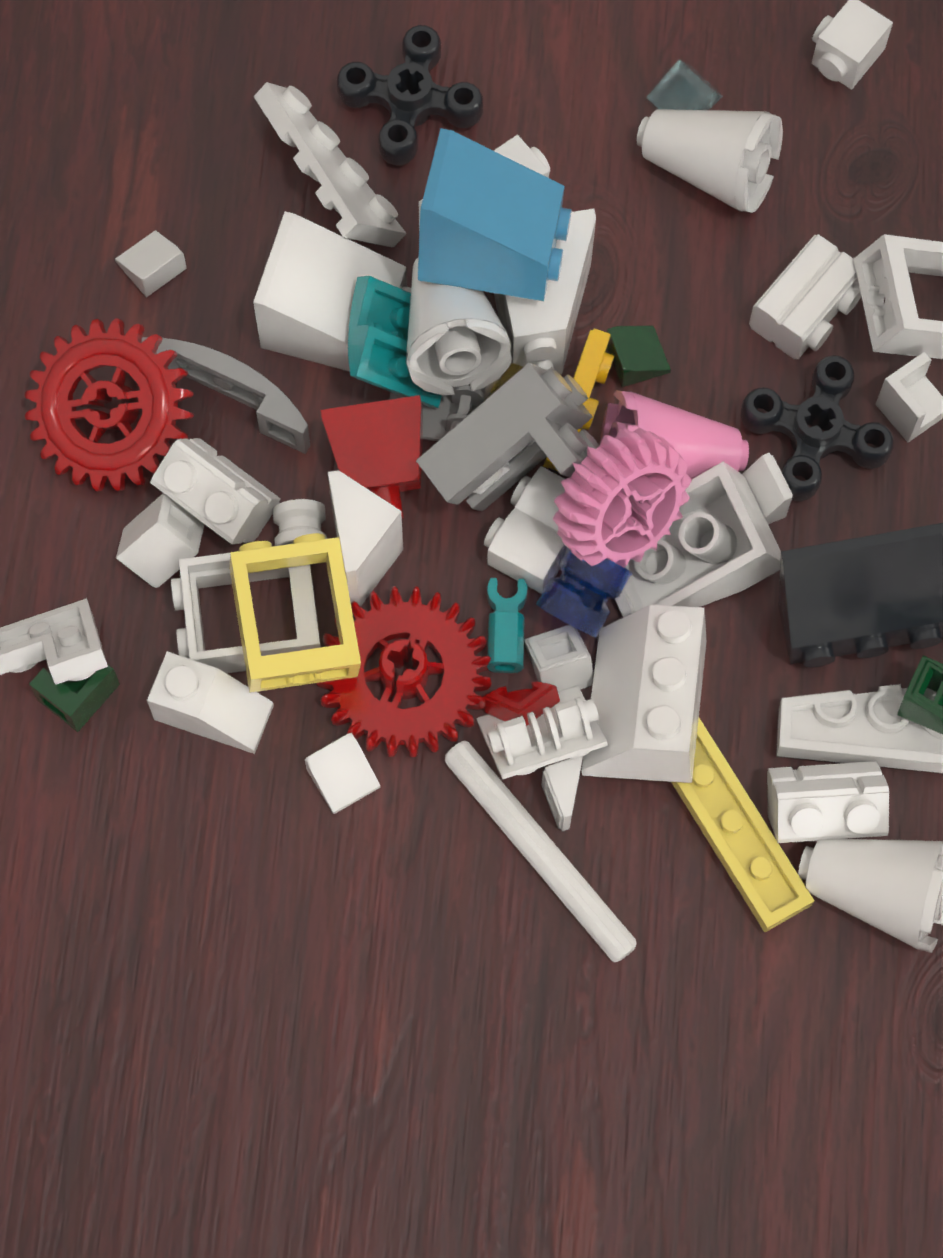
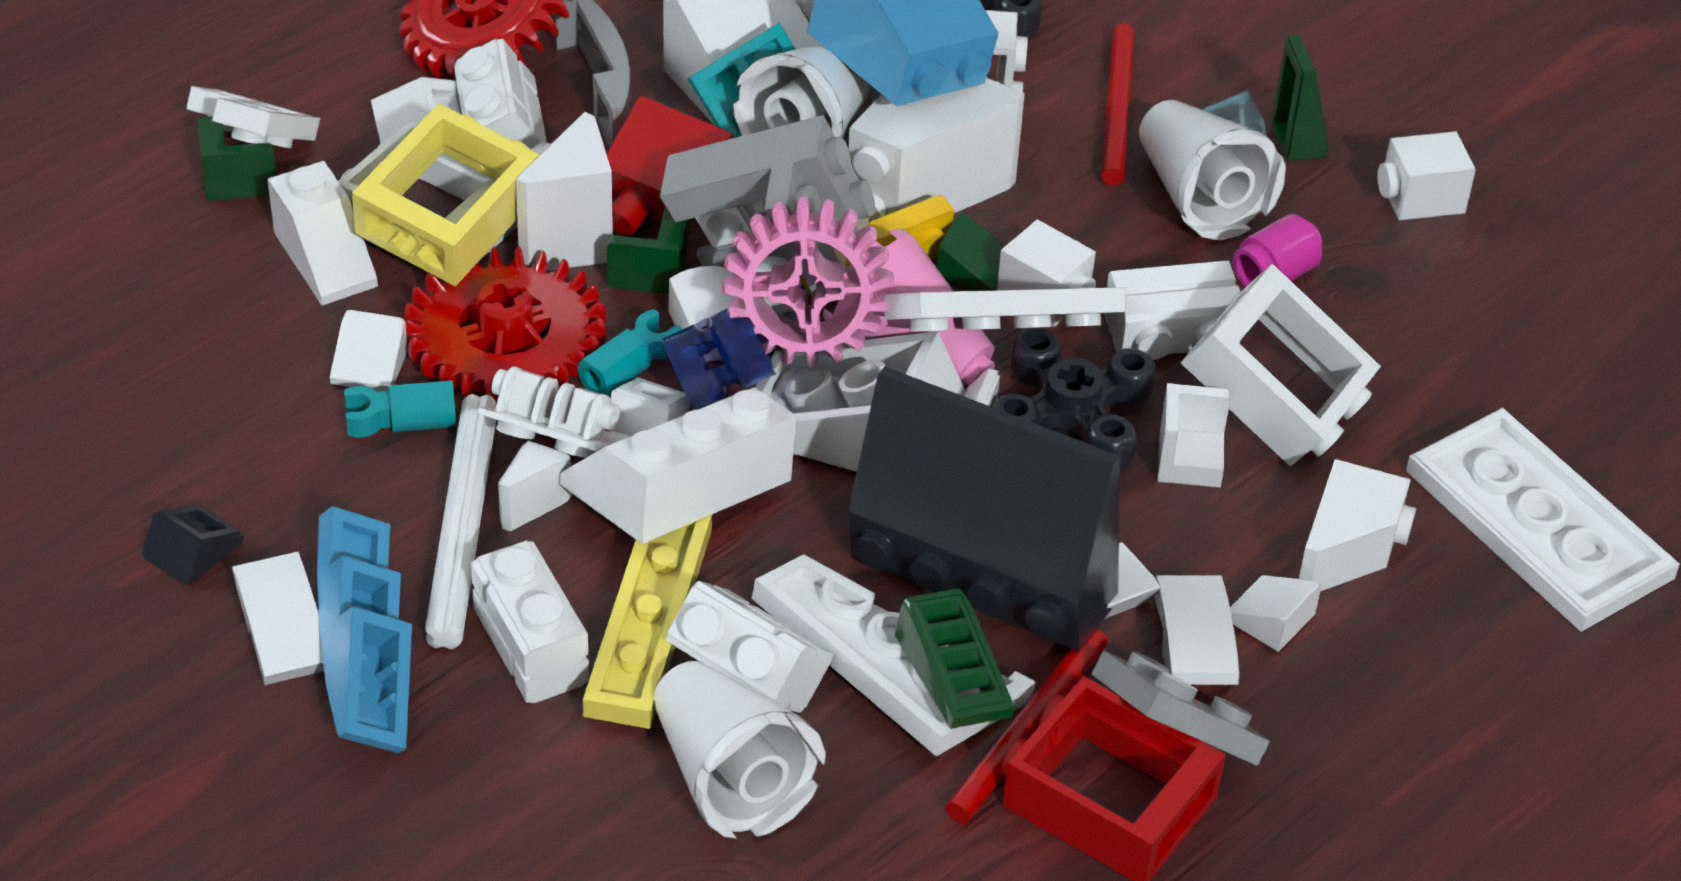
camera: 40 degrees right, 25 degrees down
(389, 1020) = (189, 541): none -> black slope
(412, 796) = (402, 408): none -> teal bar
(437, 532) = (648, 263): none -> dark green panel
(515, 1027) = (280, 617): none -> white slope
(593, 131) = (1118, 105): none -> red bar
(593, 1007) = (361, 632): none -> dark azure slope
(677, 898) = (530, 621): none -> white brick
(703, 331) = (1045, 260): none -> white brick
(729, 49) = (1298, 105): none -> dark green slope
(740, 401) = (983, 308): none -> white plate
(823, 192) = (1288, 244): none -> dark pink brick

